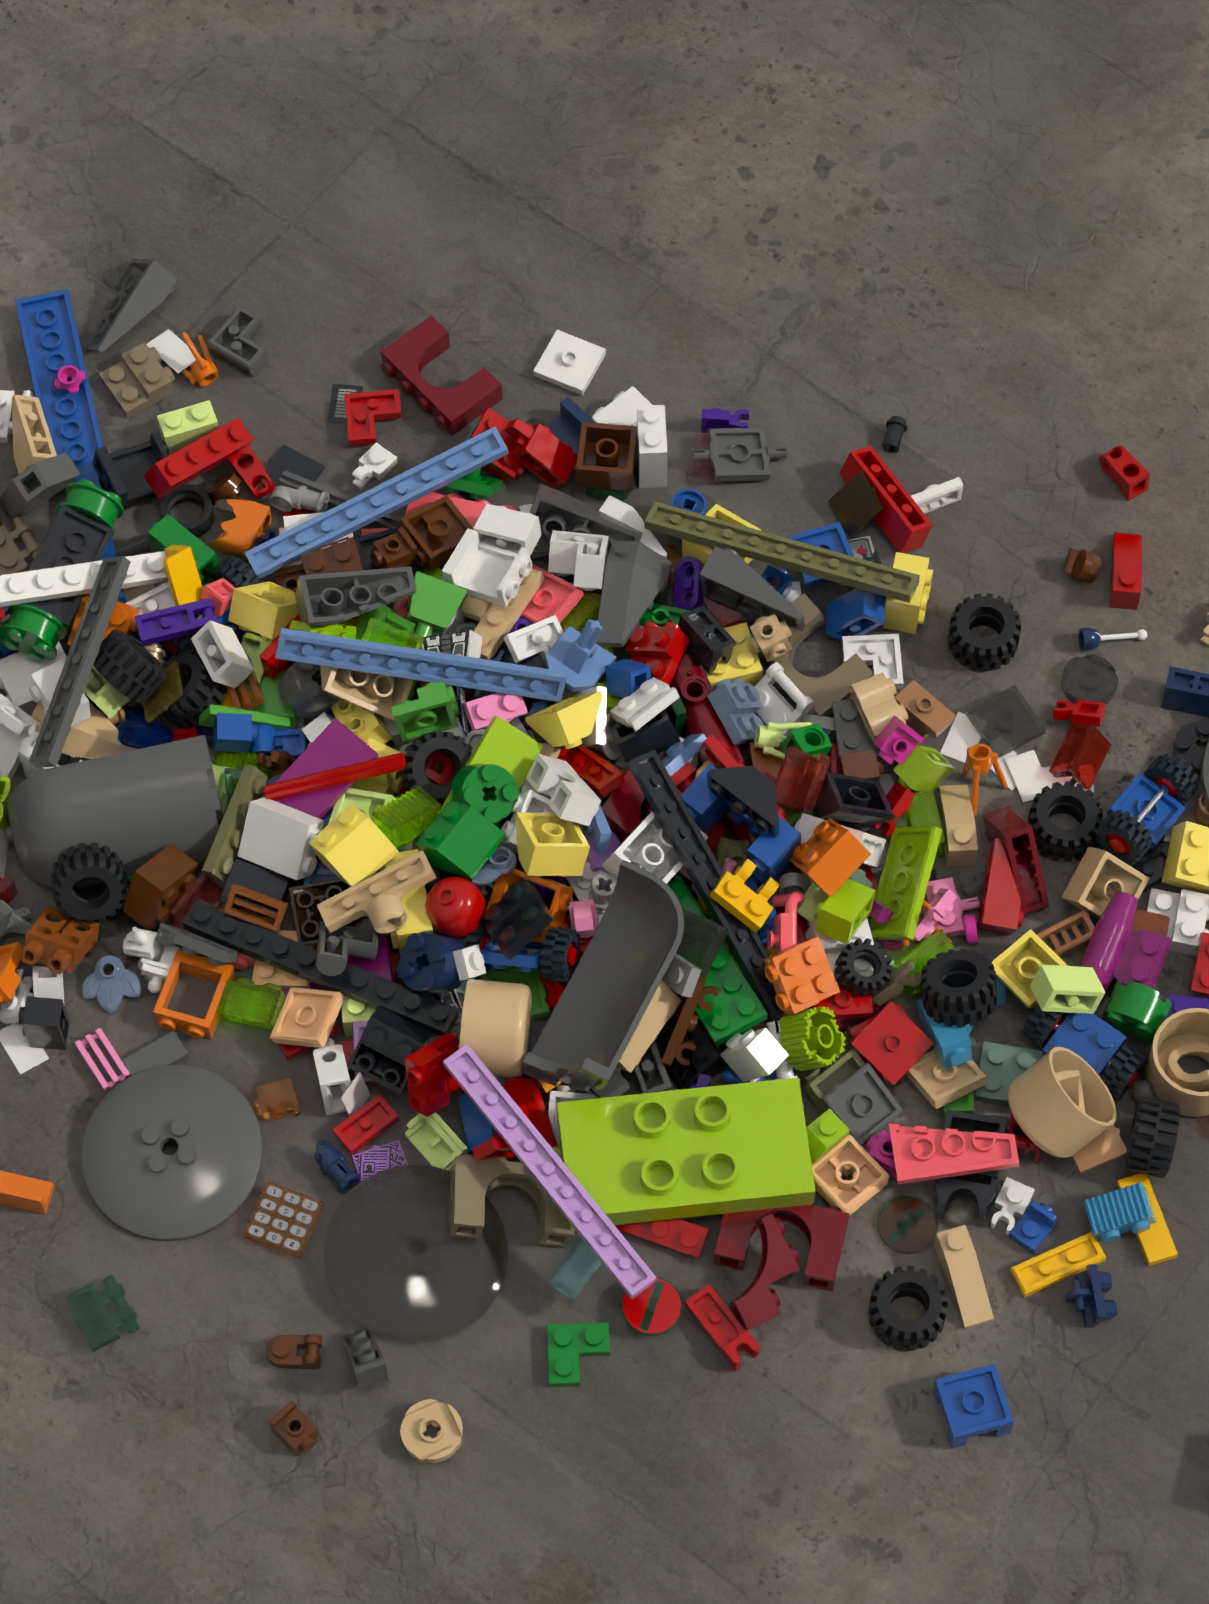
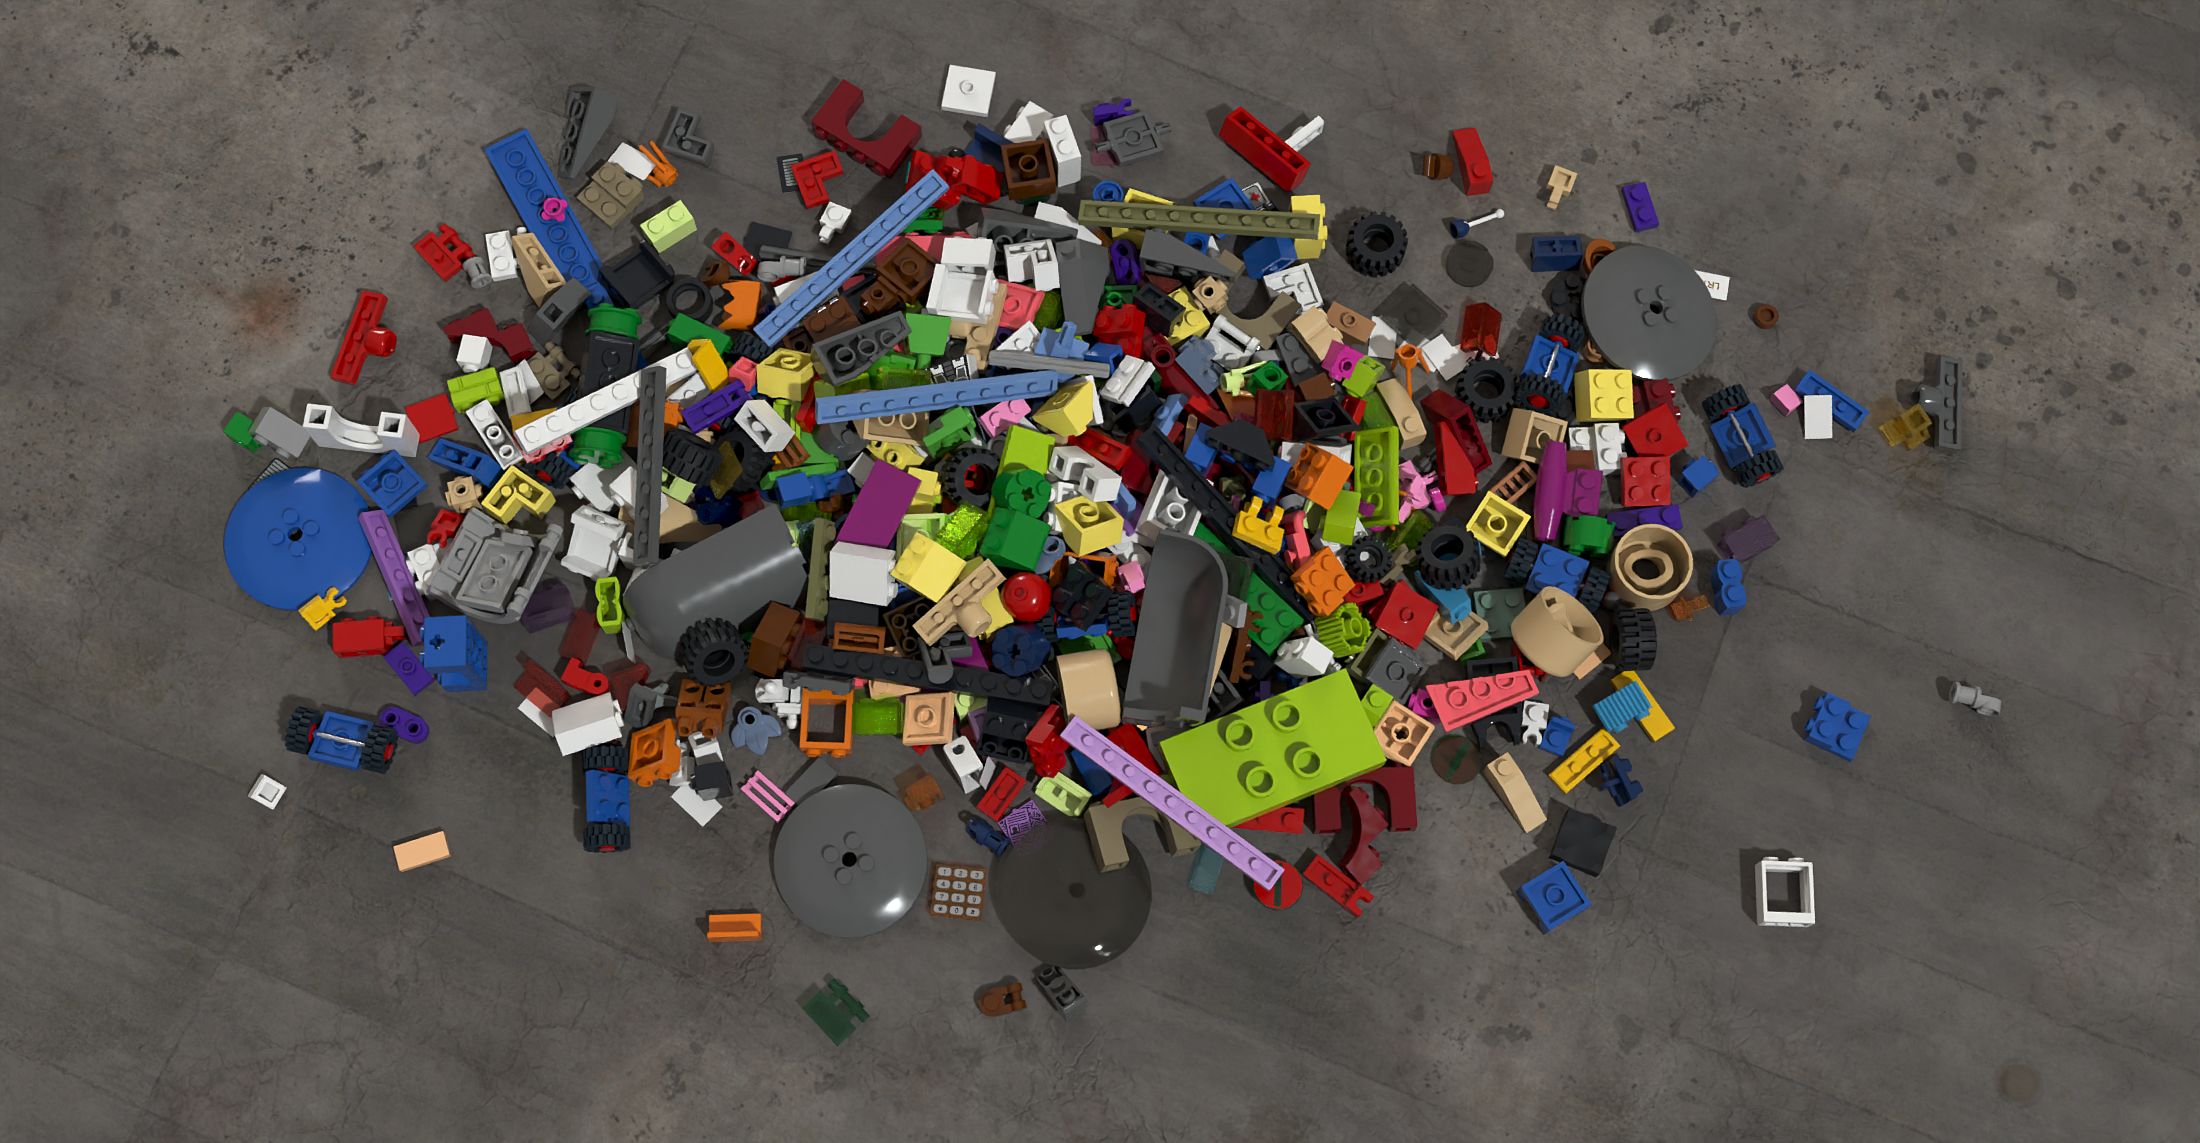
camera: 20 degrees left, 10 degrees up
(197, 458) = (687, 254): red brick -> none
(295, 1441) = (1013, 1062): reddish brown brick -> none
(335, 777) = (893, 510): red axle -> none
(438, 1415) = (1131, 1052): tan plate -> none
(469, 962) = (1051, 641): white plate -> none
(557, 662) = (1049, 363): none -> light grey axle
(569, 1343) = (1218, 935): green plate -> none
(601, 890) = (1141, 544): light grey bush -> none
(856, 504) = (1242, 159): dark brown piece -> none
(896, 428) = (1253, 89): black pin -> none
(909, 1284) = (1494, 817): black tyre -> none
(1027, 1353) = (1582, 842): none -> black brick
(1067, 989) = (1534, 535): yellowish green brick -> none
(1081, 713) = (1473, 293): red plate -> none
(1125, 472) = (1447, 76): red leg -> none

